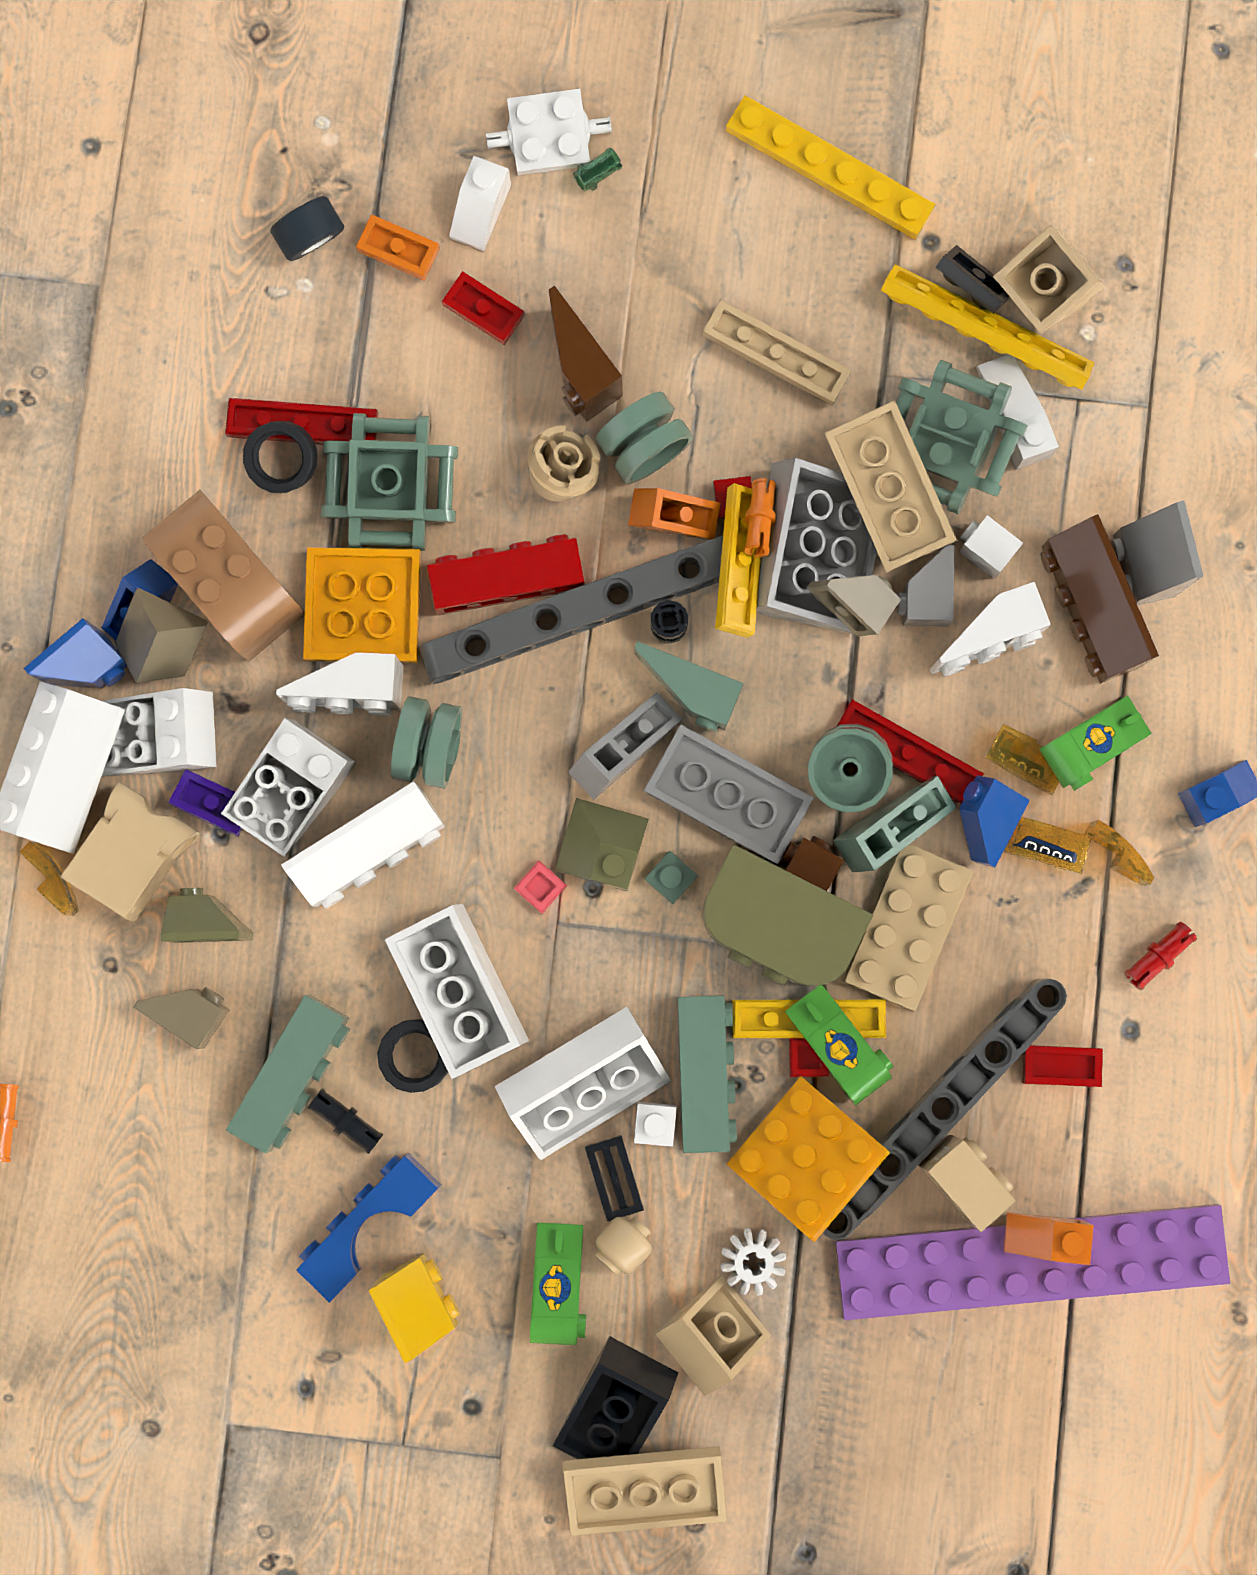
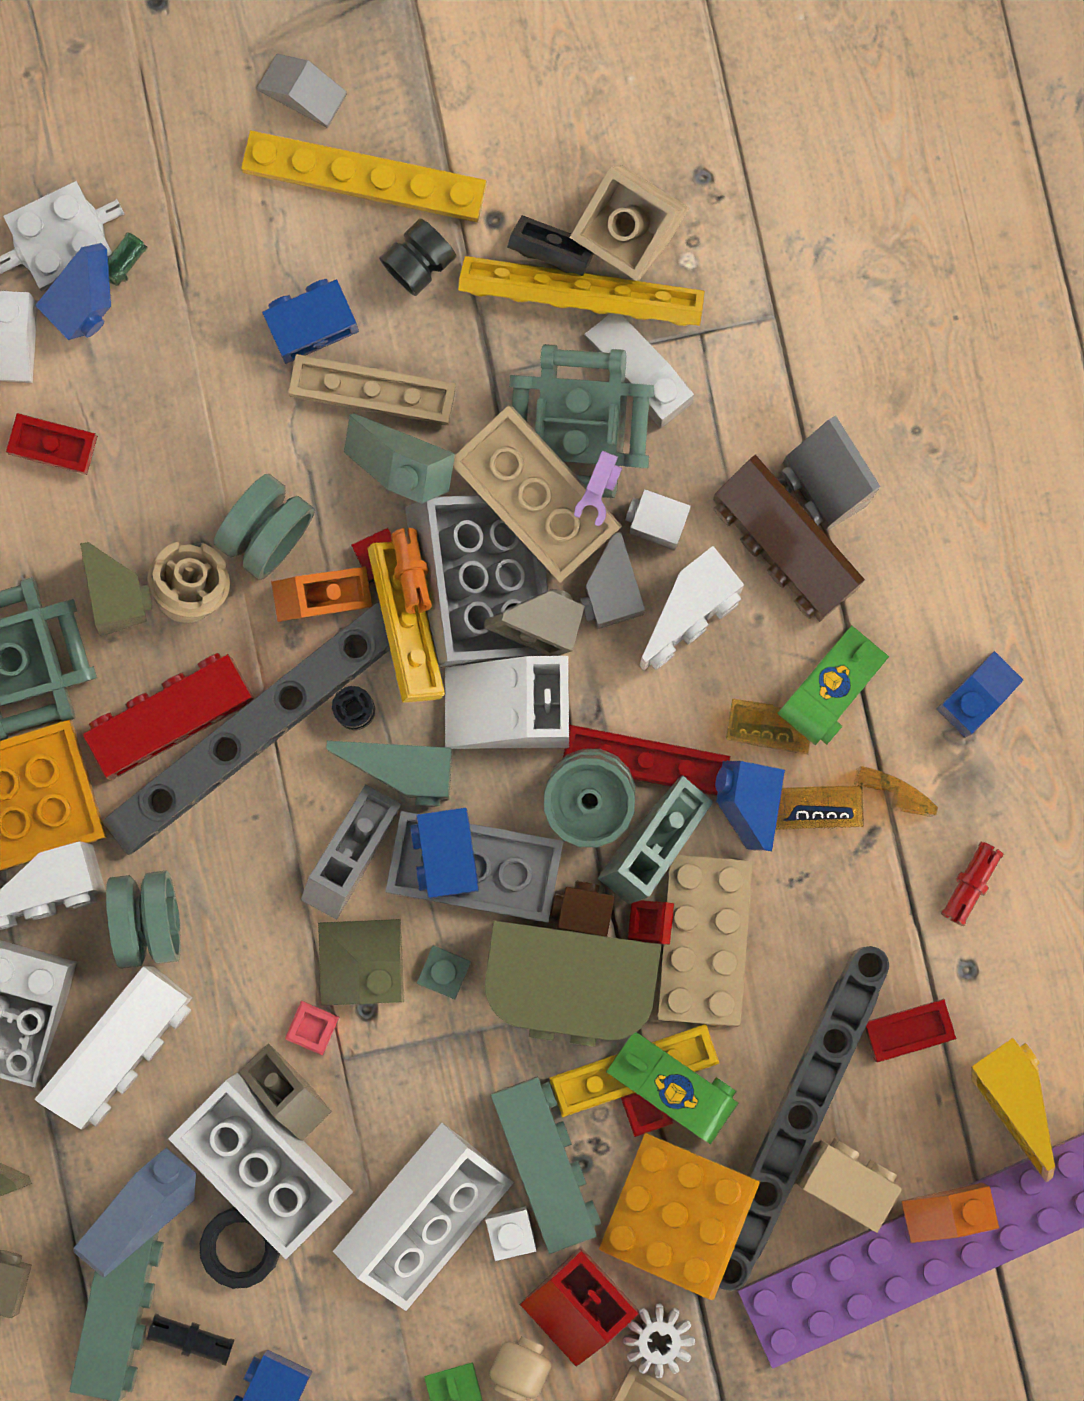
camera: 20 degrees left, 0 degrees up
(337, 994) = (138, 1212): none -> sand blue slope
(496, 451) = (114, 592): none -> olive slope
(498, 934) = (285, 1092): none -> dark tan slope
(551, 185) = (79, 294): none -> blue slope
(587, 372) = (179, 477): reddish brown slope -> none
(605, 1147) = (509, 1332): black tile -> none
(693, 1209) = (579, 1307): none -> red slope
(709, 774) = (446, 853): none -> blue brick
(743, 274) = (310, 319): none -> blue brick
(781, 418) = (399, 460): none -> sand green slope
(802, 74) = (302, 88): none -> light grey slope
(806, 662) = (508, 704): none -> white slope
(859, 248) = (418, 256): none -> pearl dark grey wheel
(868, 892) = (651, 922): none -> red tile
(958, 490) = (604, 476): none -> lavender plate
(1141, 1153) = (1013, 1090): none -> yellow slope

